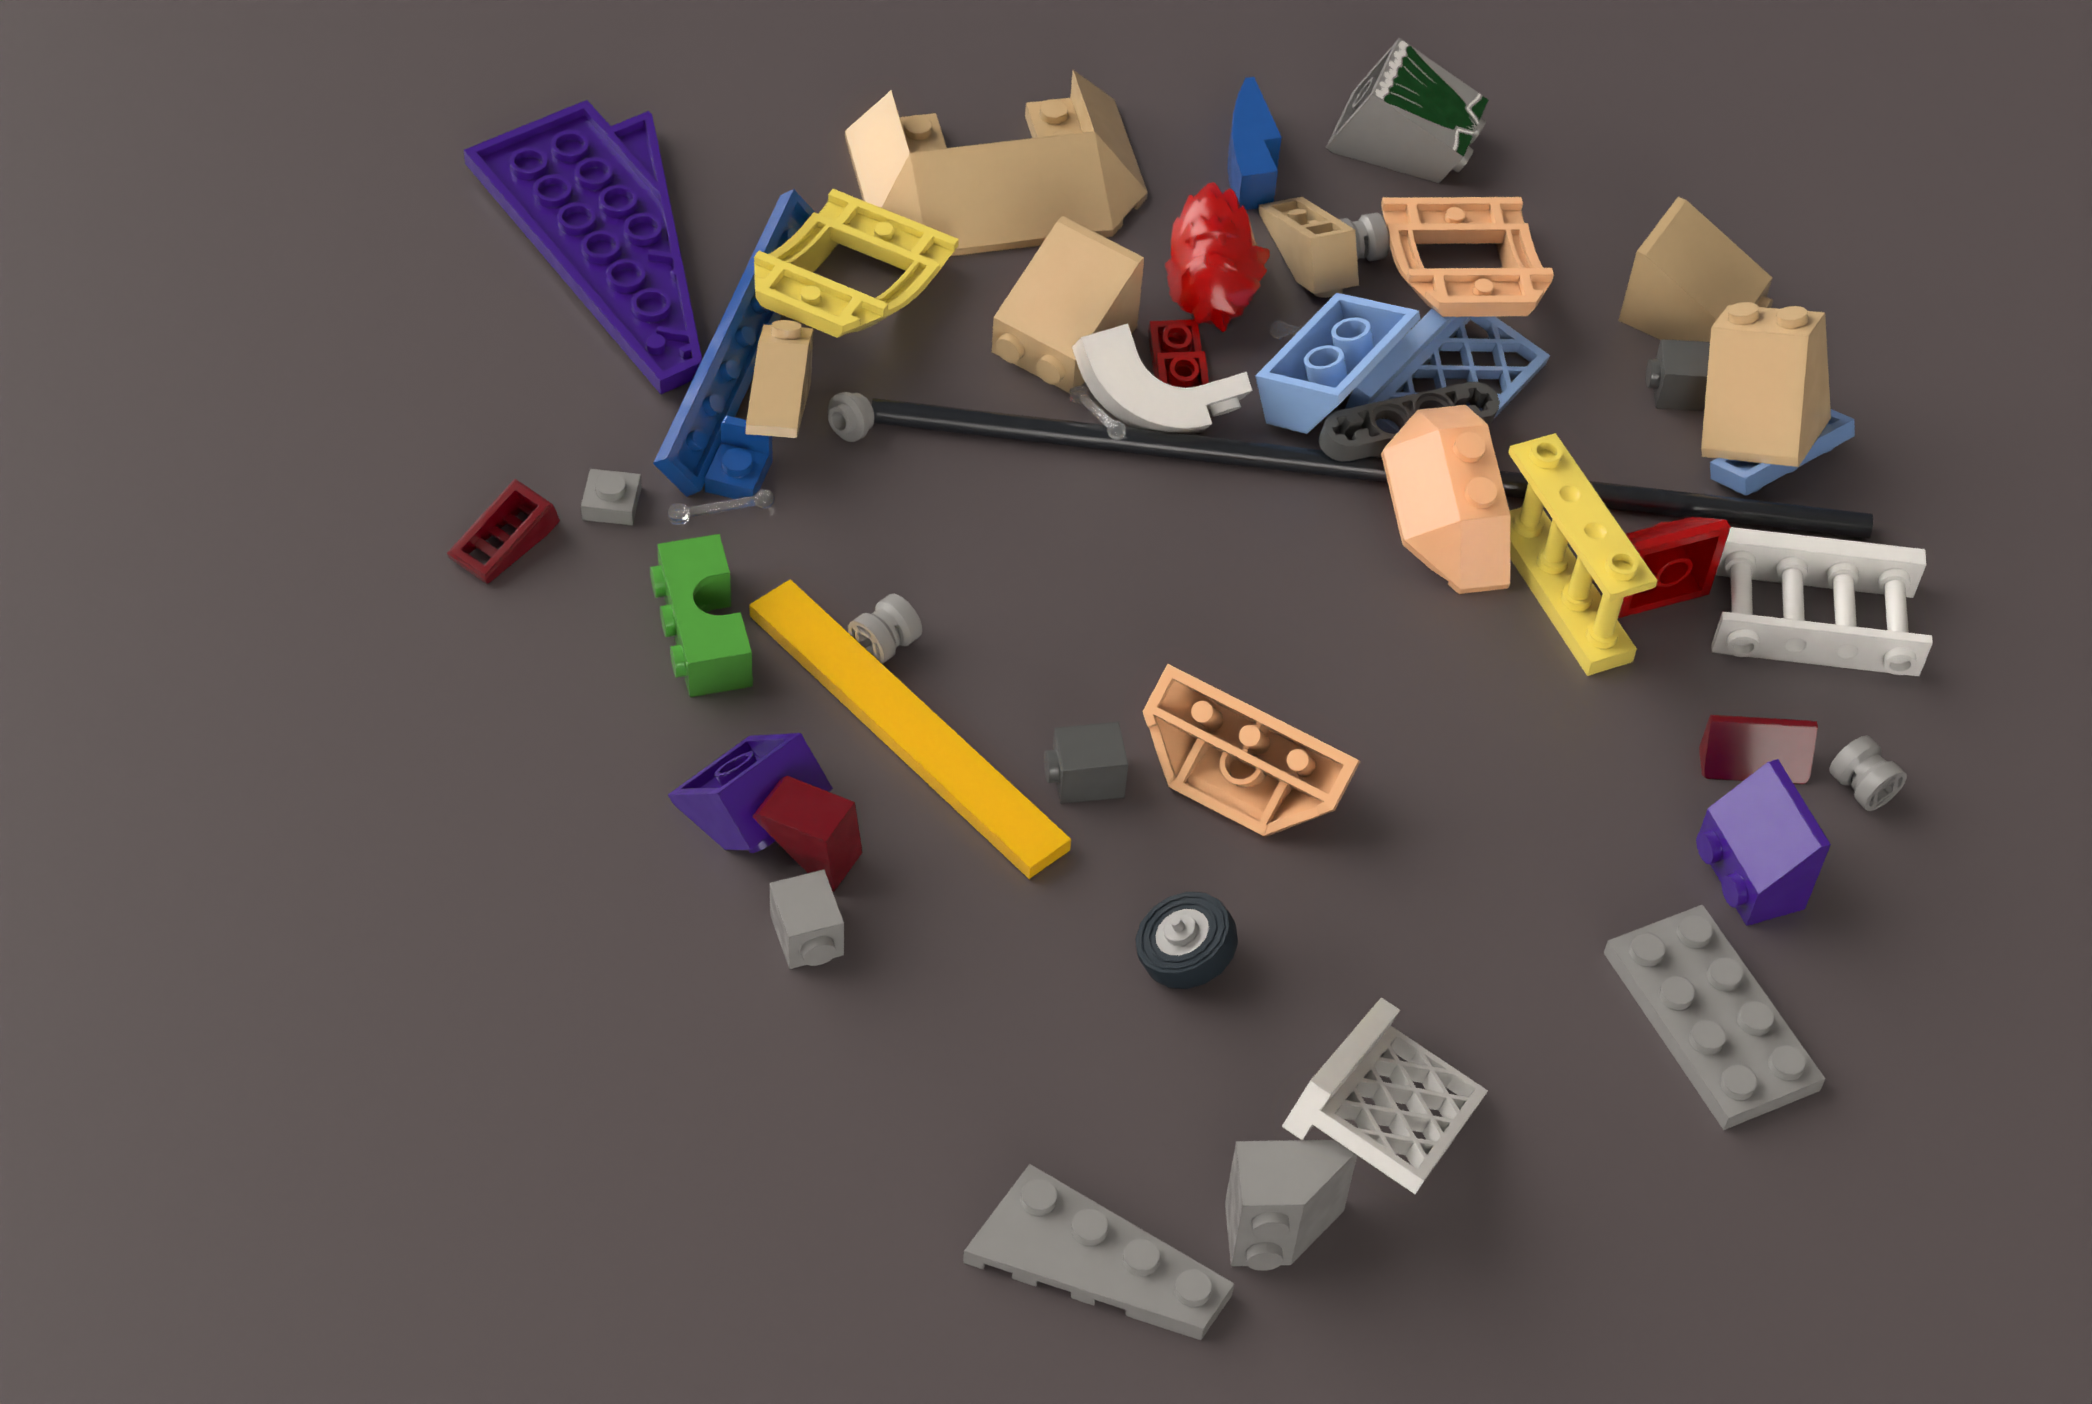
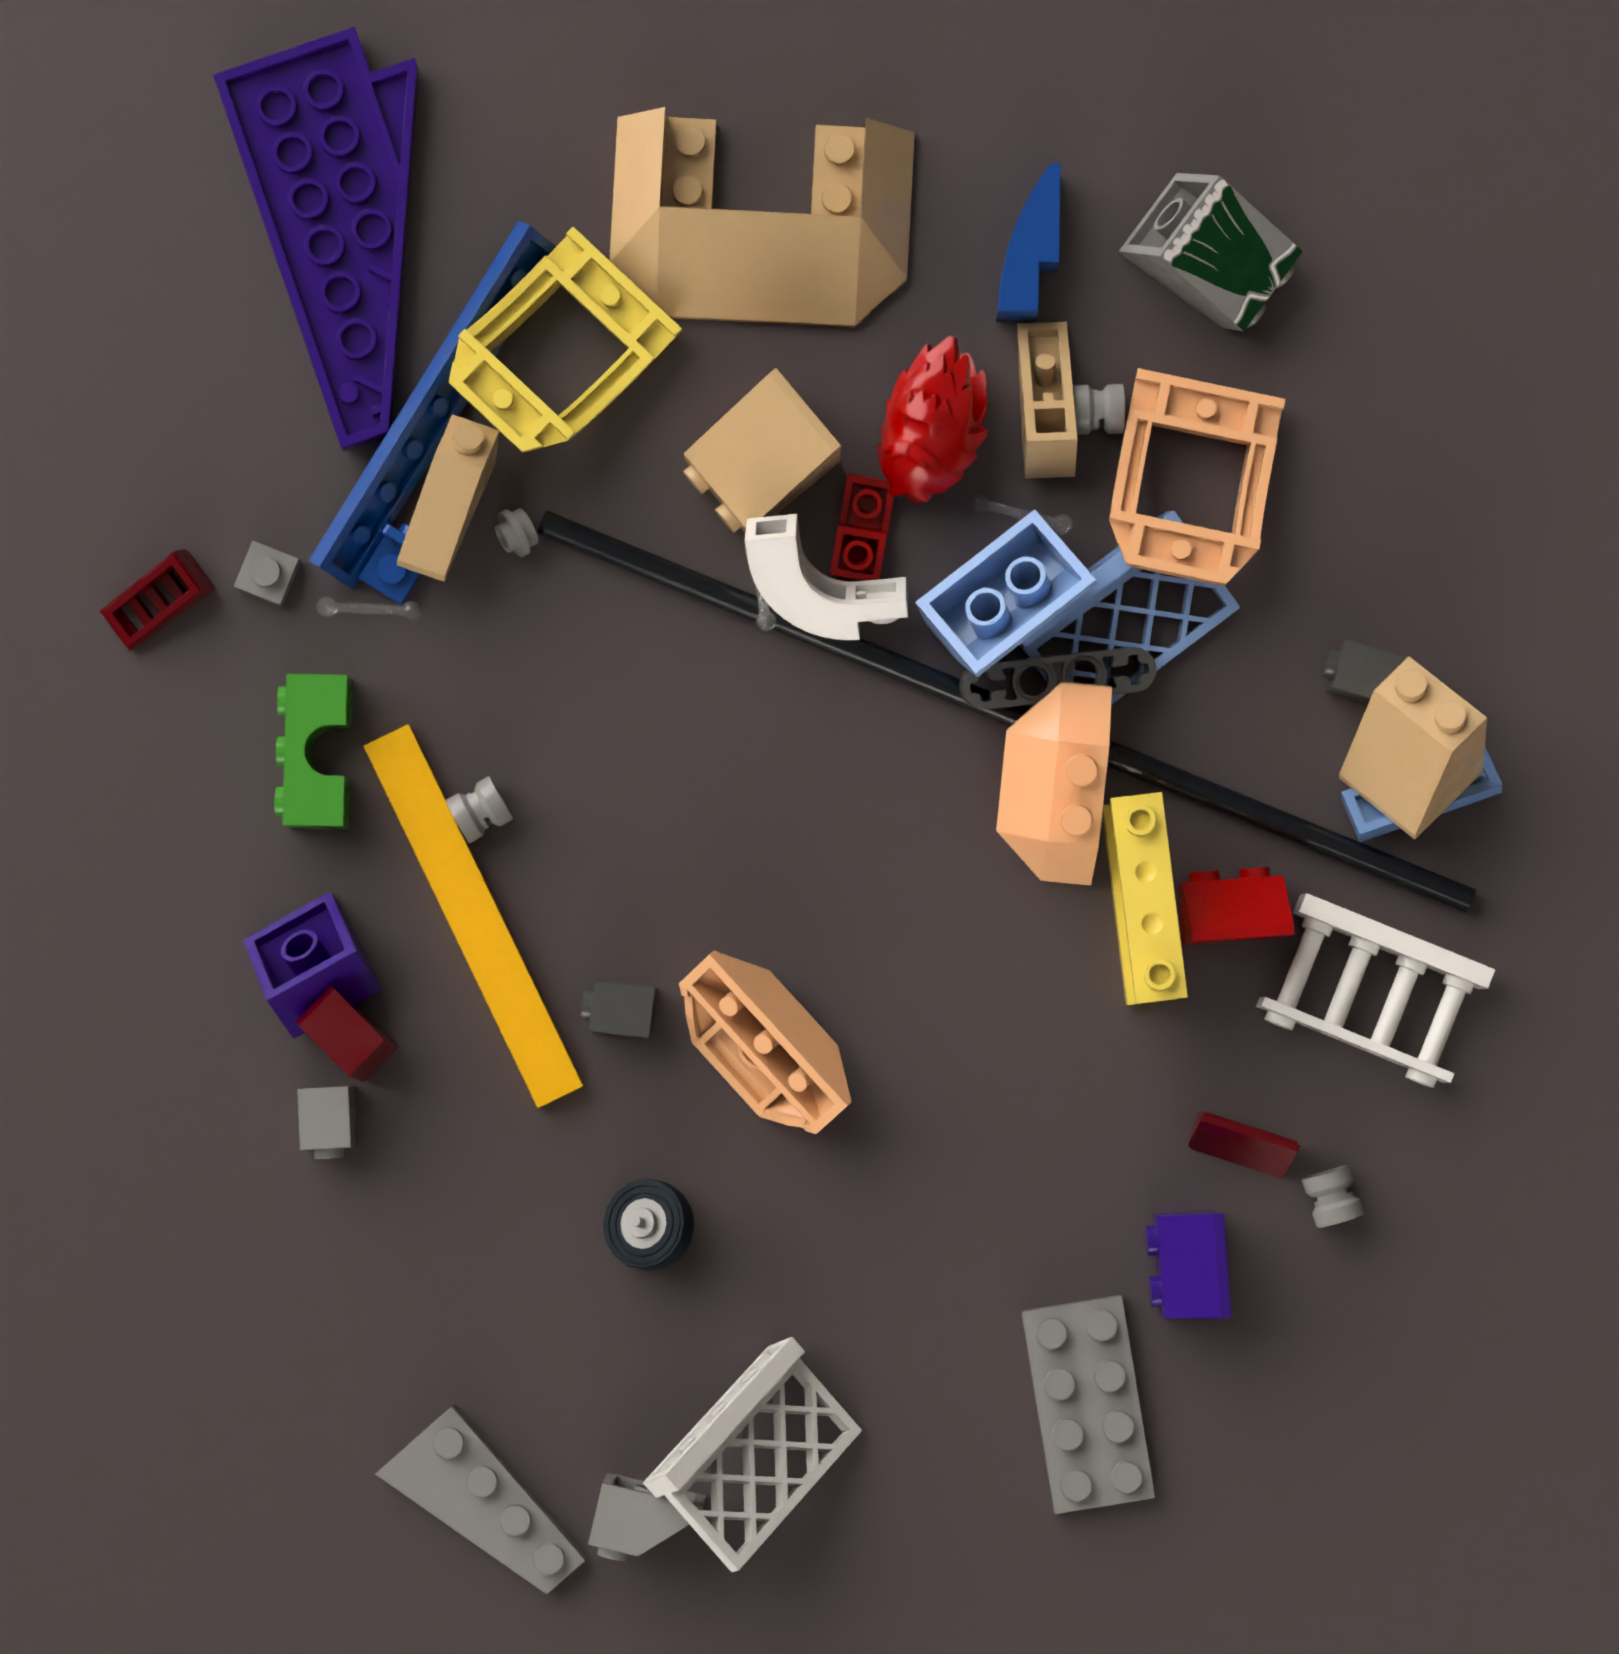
camera: 20 degrees right, 35 degrees up
(1689, 277) = (1420, 572): tan slope -> none

